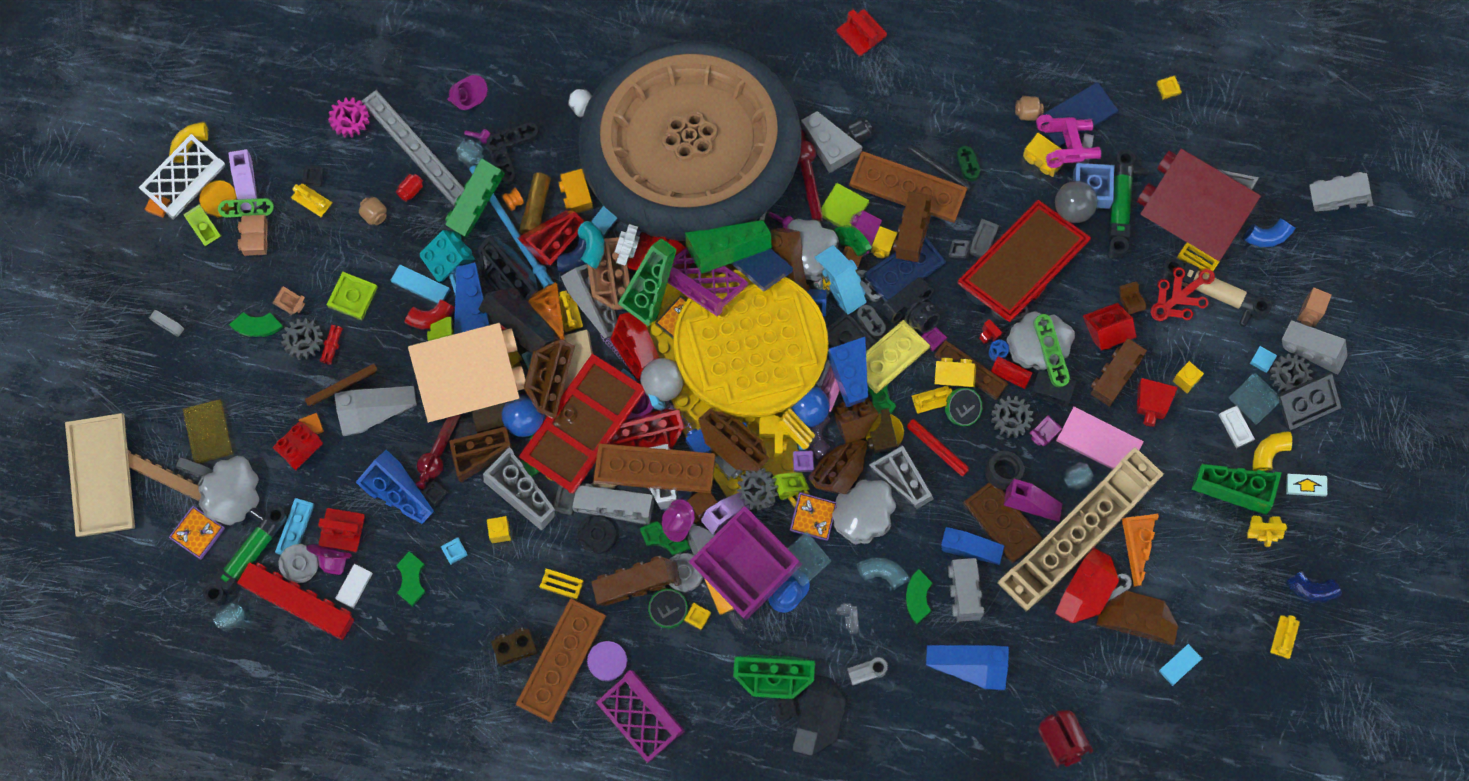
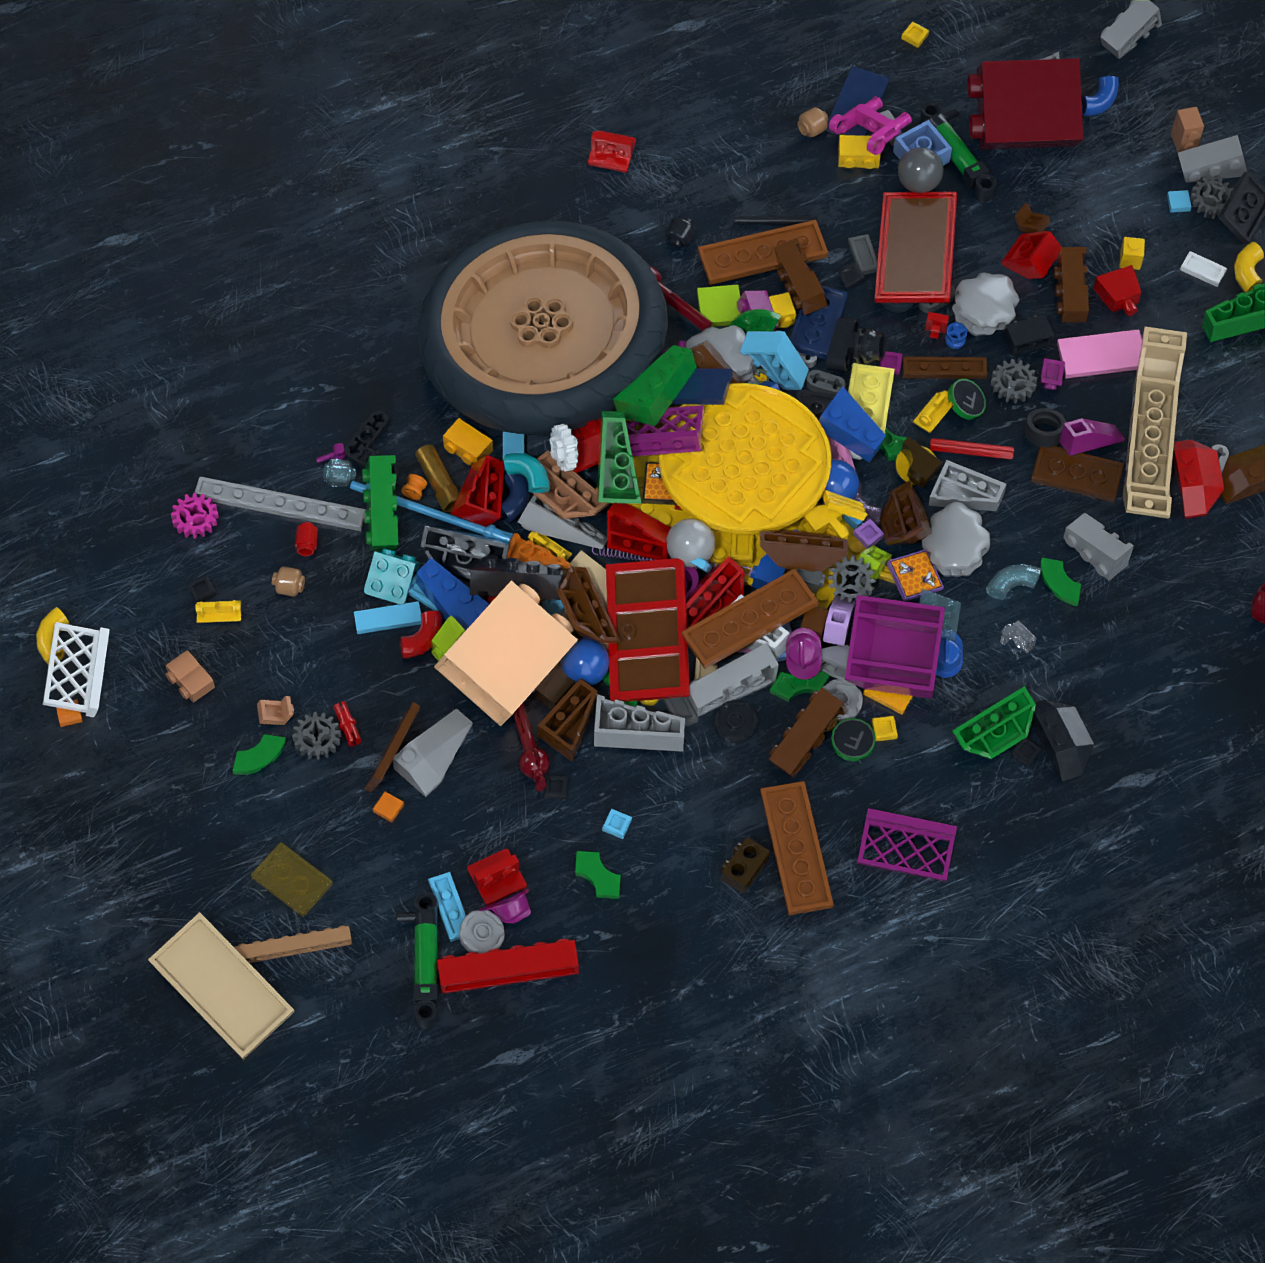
camera: 40 degrees left, 10 degrees down
(166, 323) = (170, 809): light grey beam -> none
(192, 468) = (308, 918): dark grey beam -> none
(196, 533) = (358, 974): tile -> none
(202, 225) = (131, 700): lime slope -> none
(214, 194) = (125, 668): light orange tile -> none
(229, 491) = (362, 913): light grey piece -> none
(229, 617) = (456, 1024): clear light blue head -> none
(231, 203) = (145, 660): bright green beam -> none
(243, 177) = (139, 633): lavender slope -> none
(298, 445) = (392, 828): red bracket -> none
(352, 296) = (330, 669): lime tile -> none
(354, 586) = (549, 917): white tile -> none
(392, 483) = (512, 804): blue wedge -> none
(468, 92) = (291, 422): magenta piece -> none
(498, 529) = (645, 775): yellow brick -> none
(562, 576) = (736, 777): yellow tile -> none
(578, 101) = (408, 364): white head -> none
(607, 661) = (837, 820): medium lavender tile -> none
(830, 142) = (668, 255): light grey wedge -> none
(854, 420) = (884, 471): reddish brown slope -> none
(865, 671) = (1070, 669): light grey piece -> none
(955, 373) = (937, 375): yellow brick -> none
(971, 546) = (1068, 507): blue slope -> none
(972, 162) = (797, 201): dark green beam -> none
(974, 664) = (1158, 600): blue wedge -> none
(1011, 372) = (982, 345): red tile -> none
(1053, 350) = (1007, 297): bright green beam -> none
(1078, 476) = (1110, 391): clear light blue head -> none
(1138, 538) = (1206, 413): orange wing -> none
(1179, 295) = (1069, 190): red plant -> none
(1182, 257) = (1057, 159): yellow tile -> none
(1221, 291) = (1064, 173): piece -> none
(1255, 398) = (1200, 235): clear light blue hinge -> none

